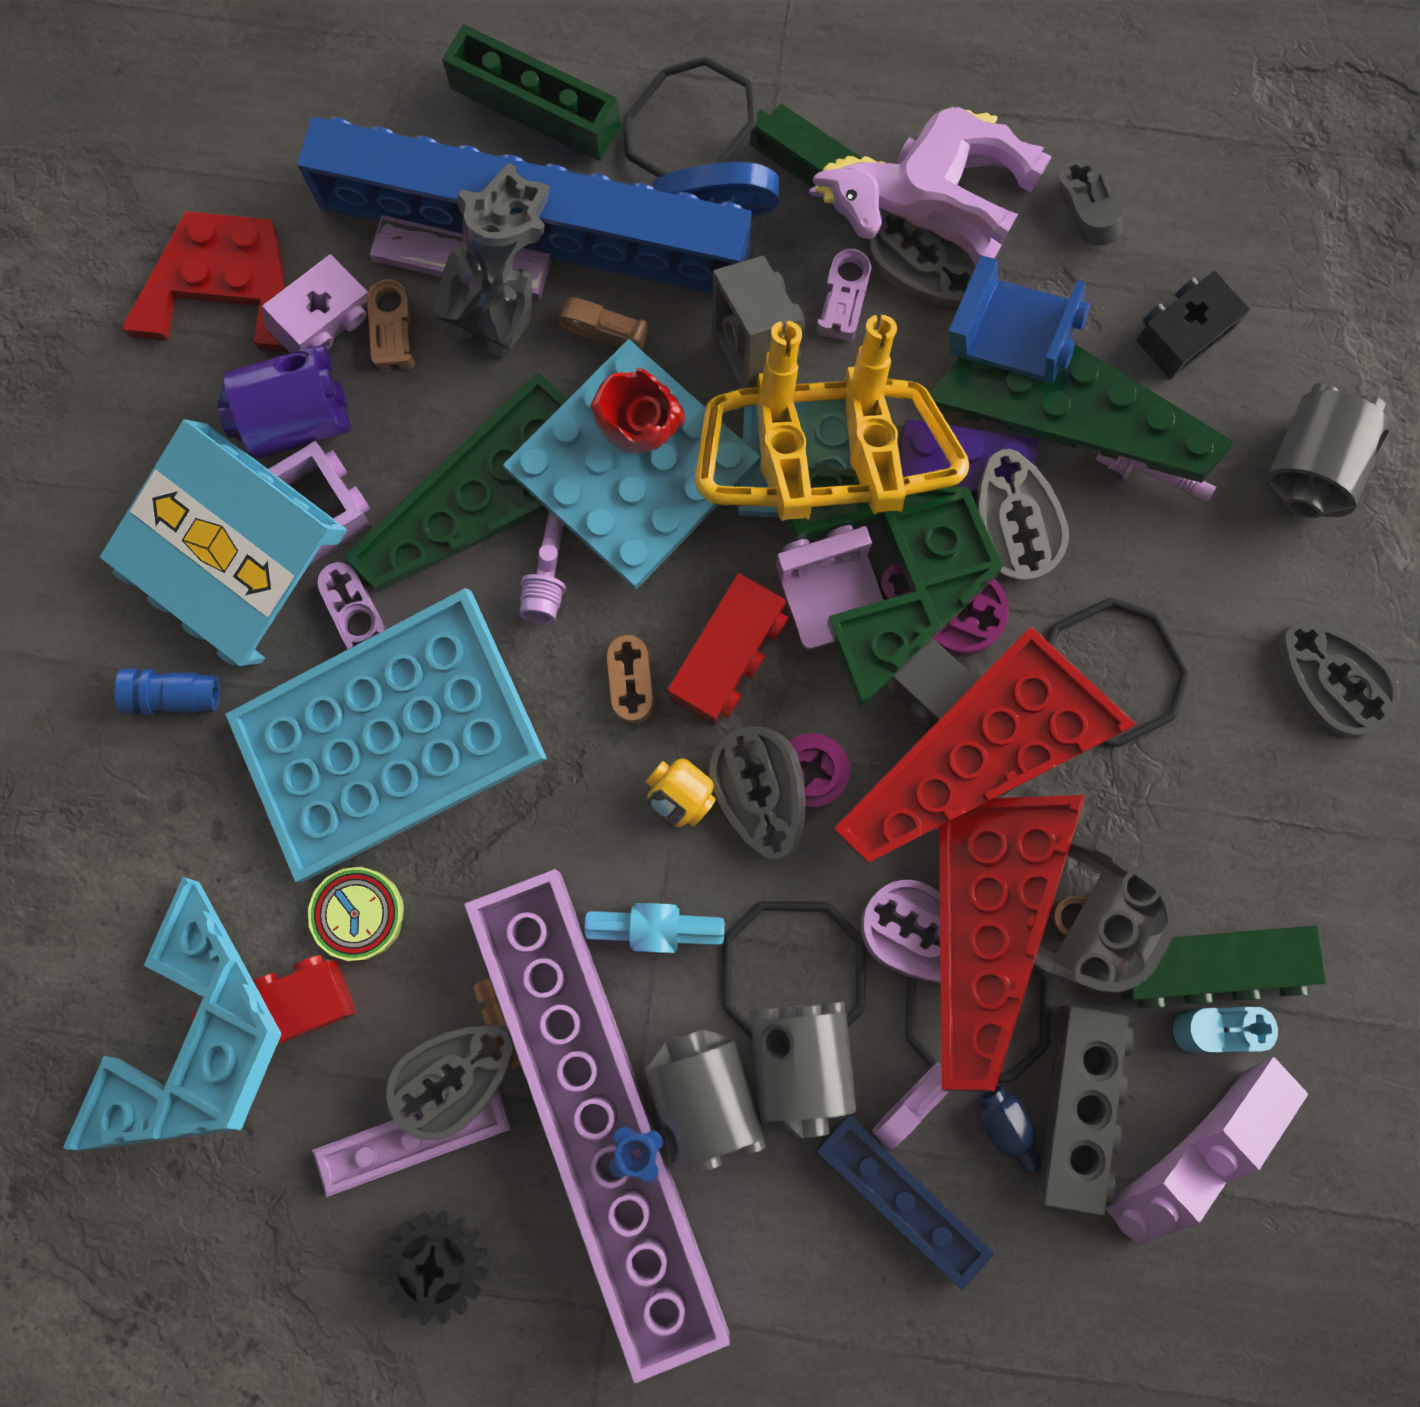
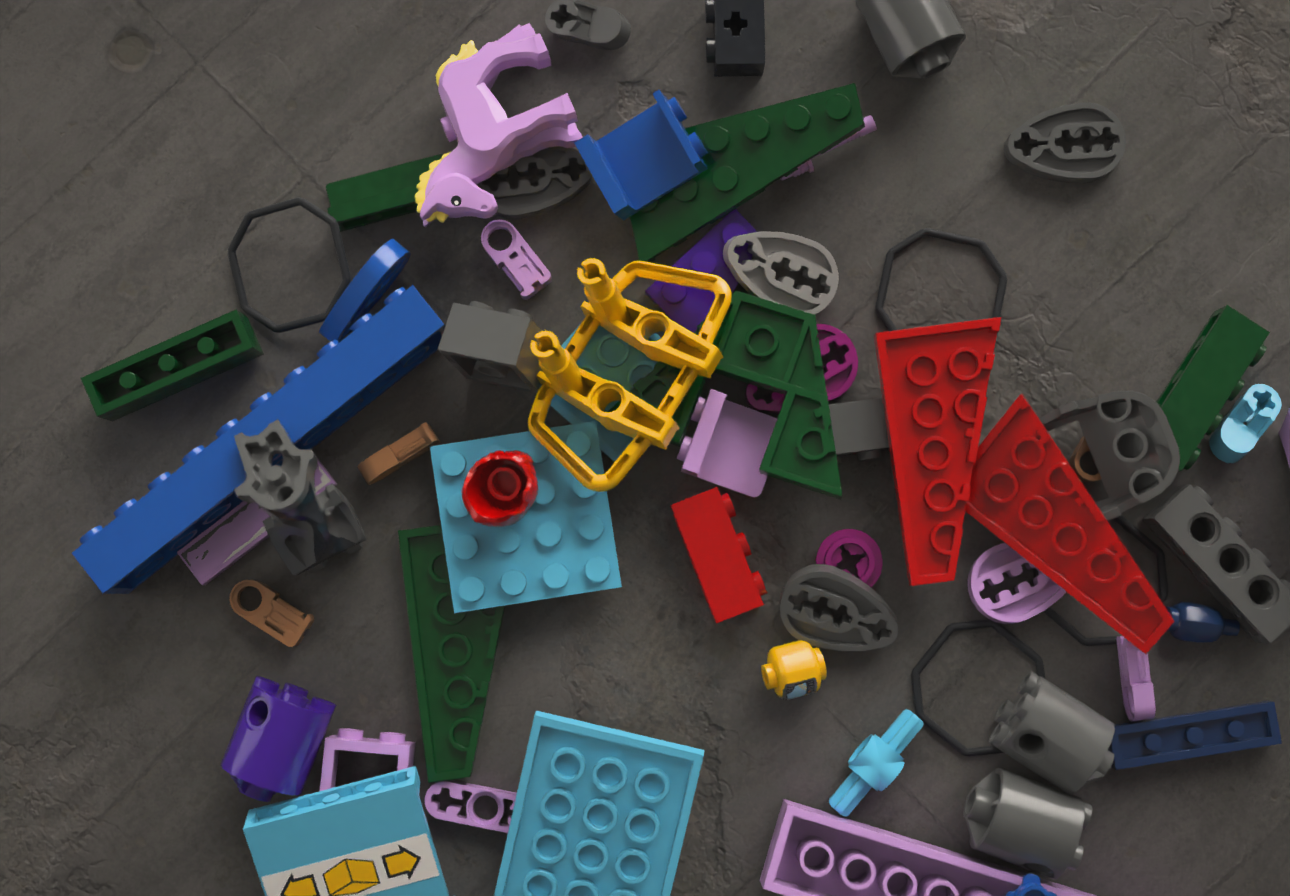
camera: 55 degrees left, 5 degrees up
(212, 261) = (113, 702): red wing -> none
(321, 289) = (205, 640): lavender brick -> none
(541, 591) = (570, 656): lavender piece -> none
(641, 678) = (676, 649): medium nougat beam -> none

